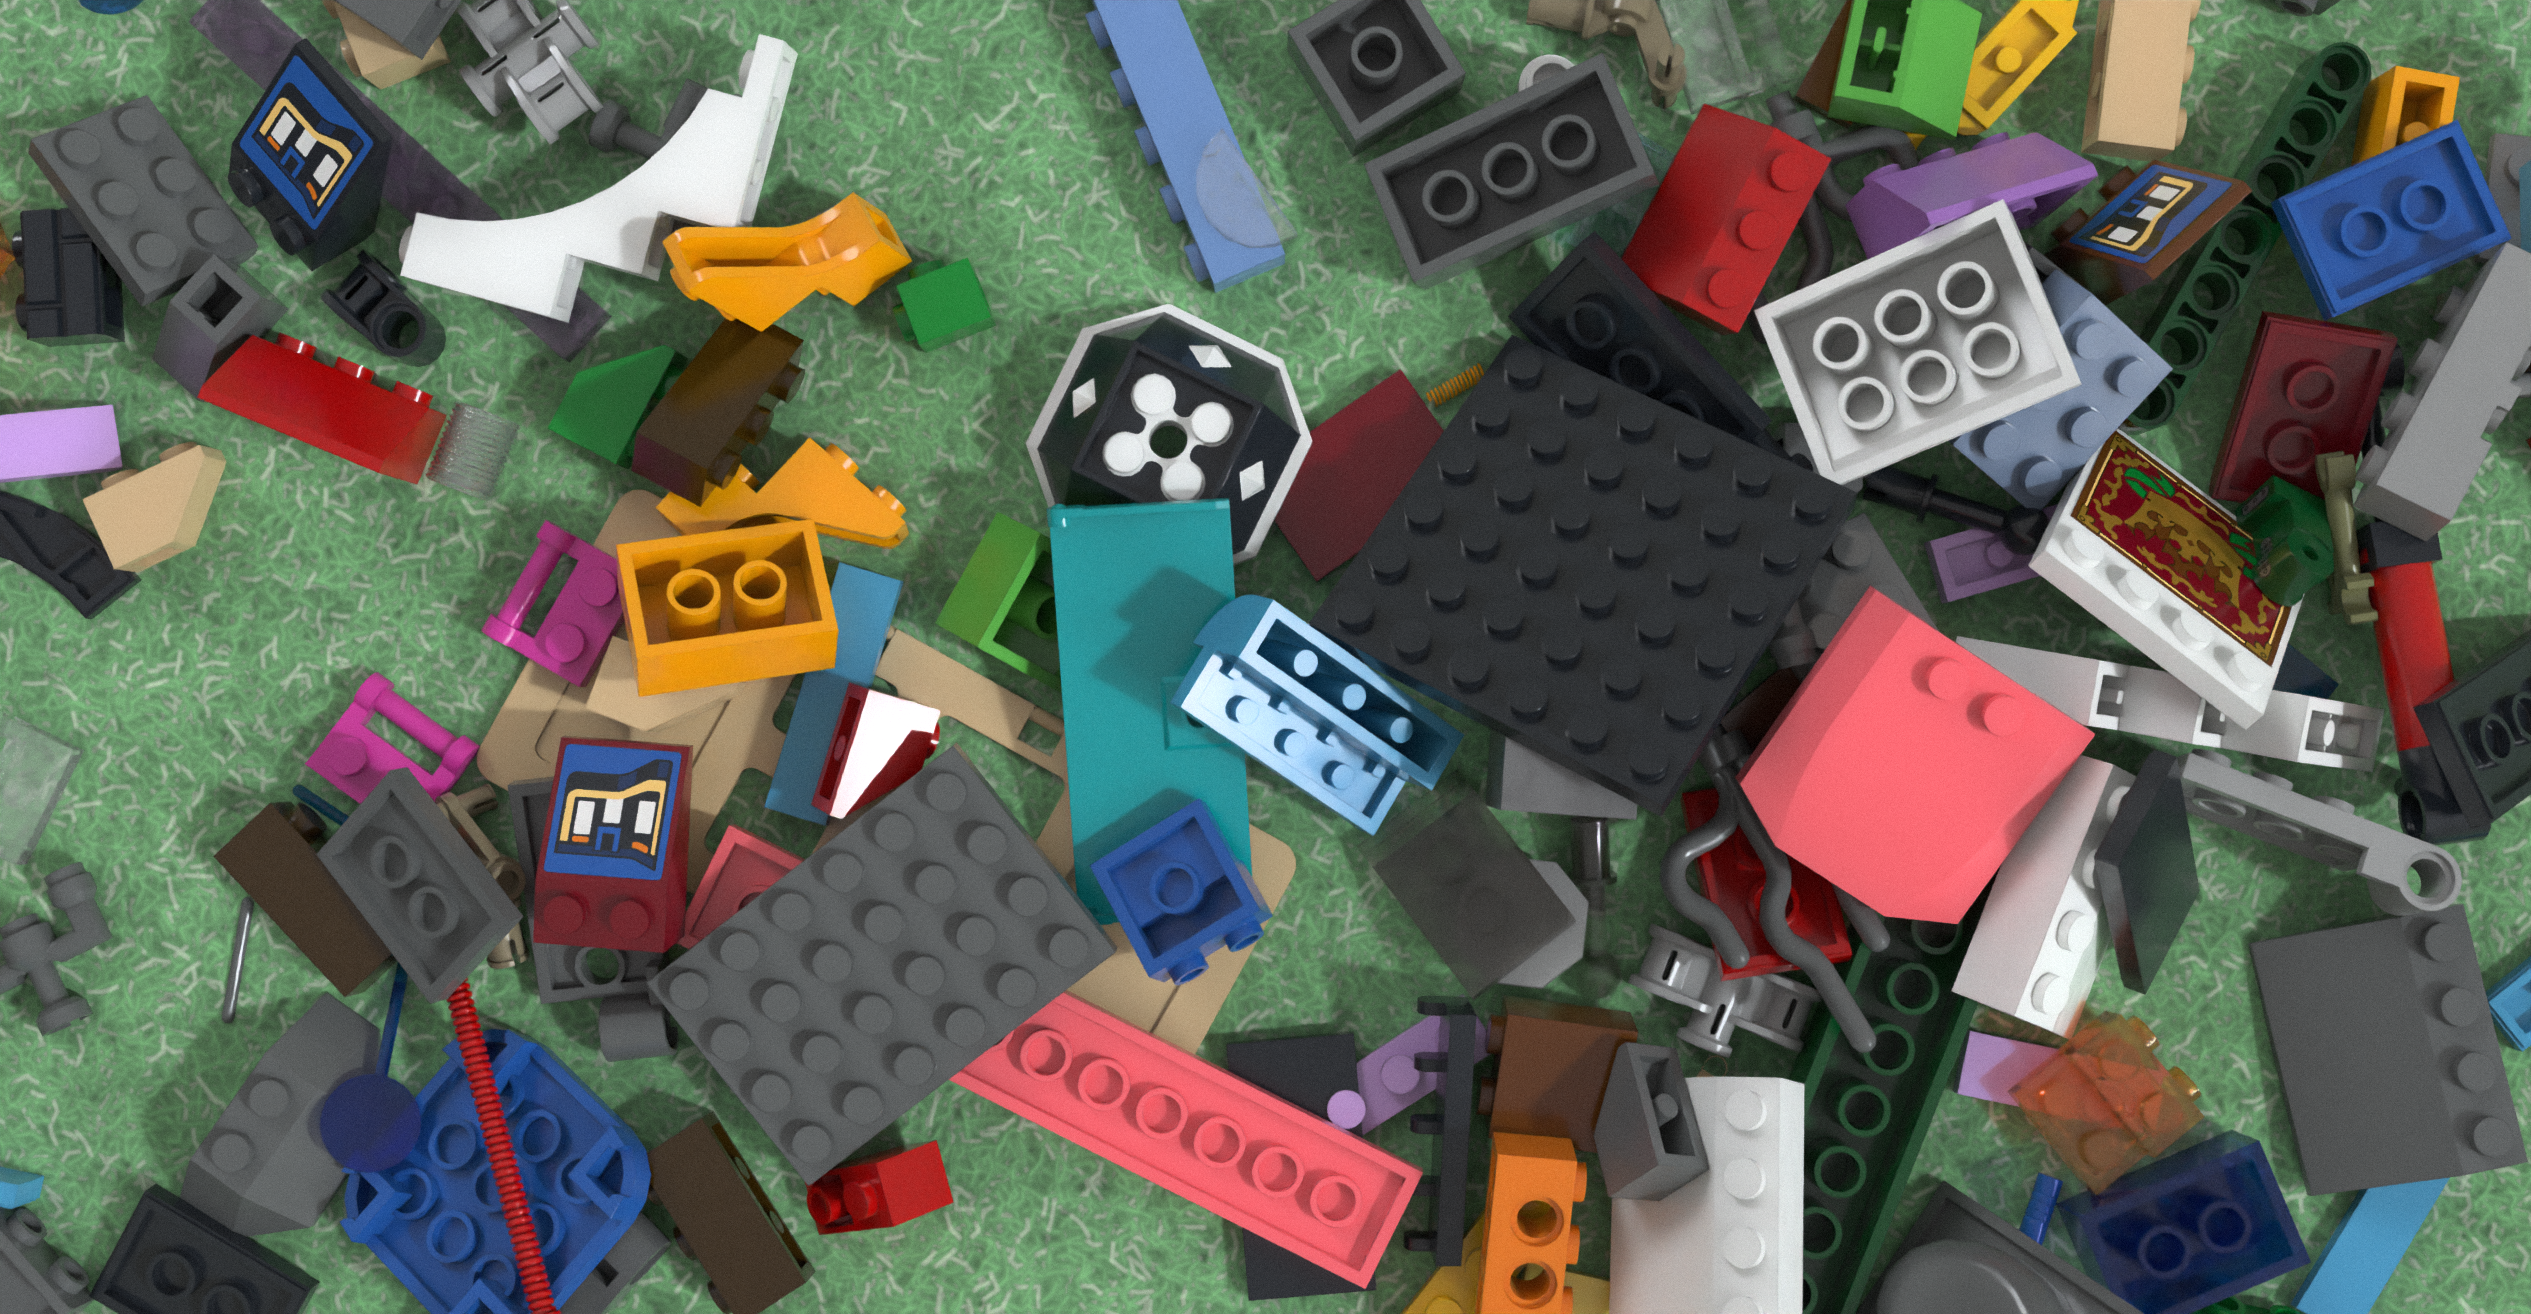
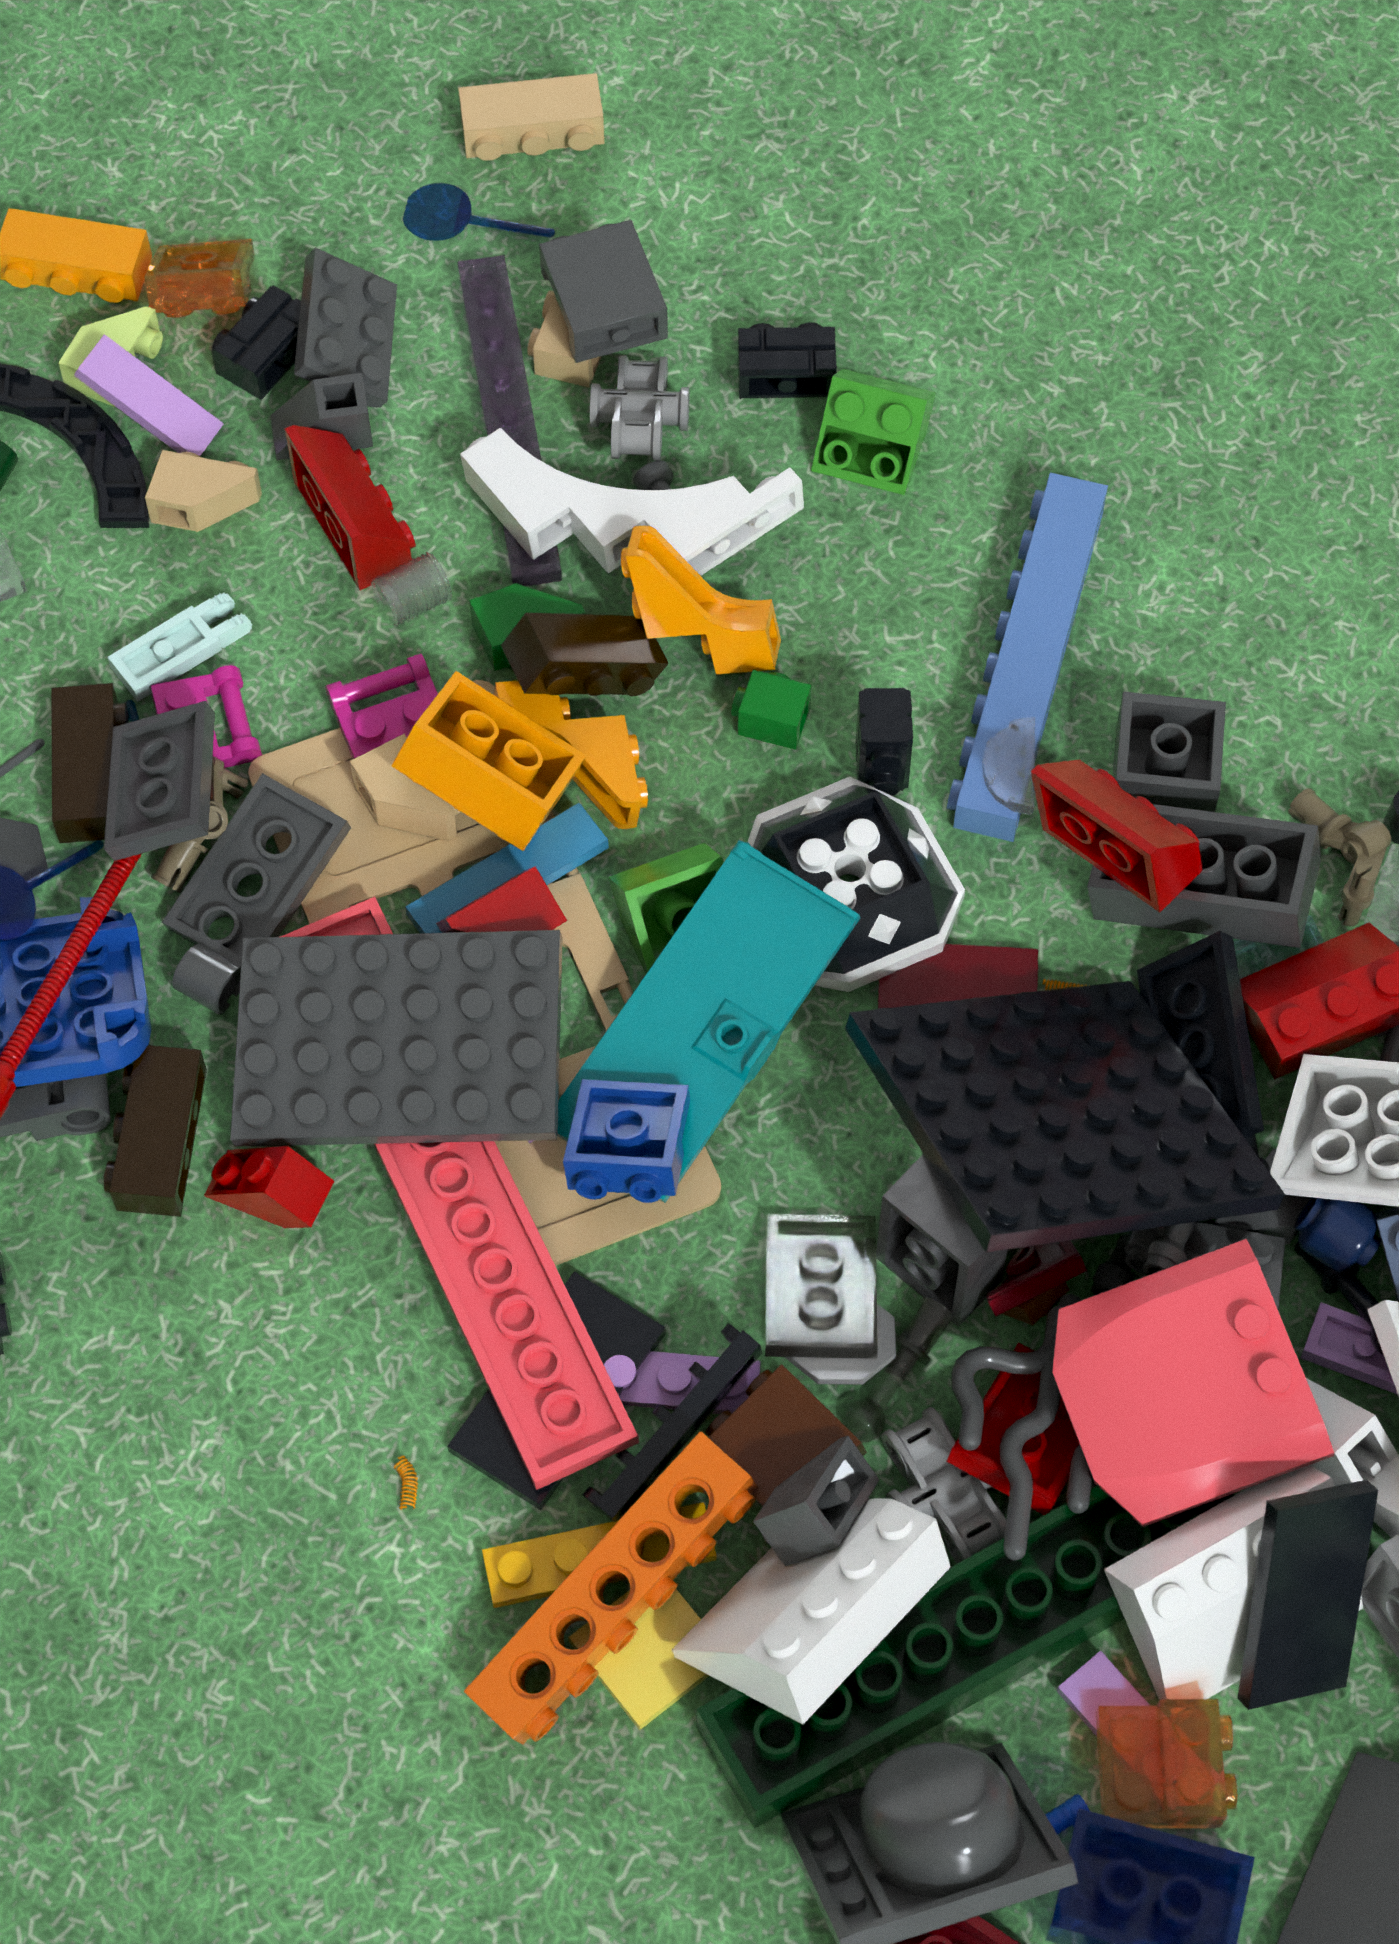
camera: 35 degrees right, 25 degrees down
(291, 697) = (177, 645): none -> light aqua hinge
(311, 160) = (464, 366): slope -> none
(379, 308) = (429, 486): black piece -> none
(615, 846) = (296, 848): slope -> none
(1089, 266) = (884, 738): none -> black brick
(1312, 711) = (808, 1084): dark azure brick -> none
(1411, 208) = (1116, 831): none -> red slope
(1918, 482) = (1338, 1232): none -> dark blue head

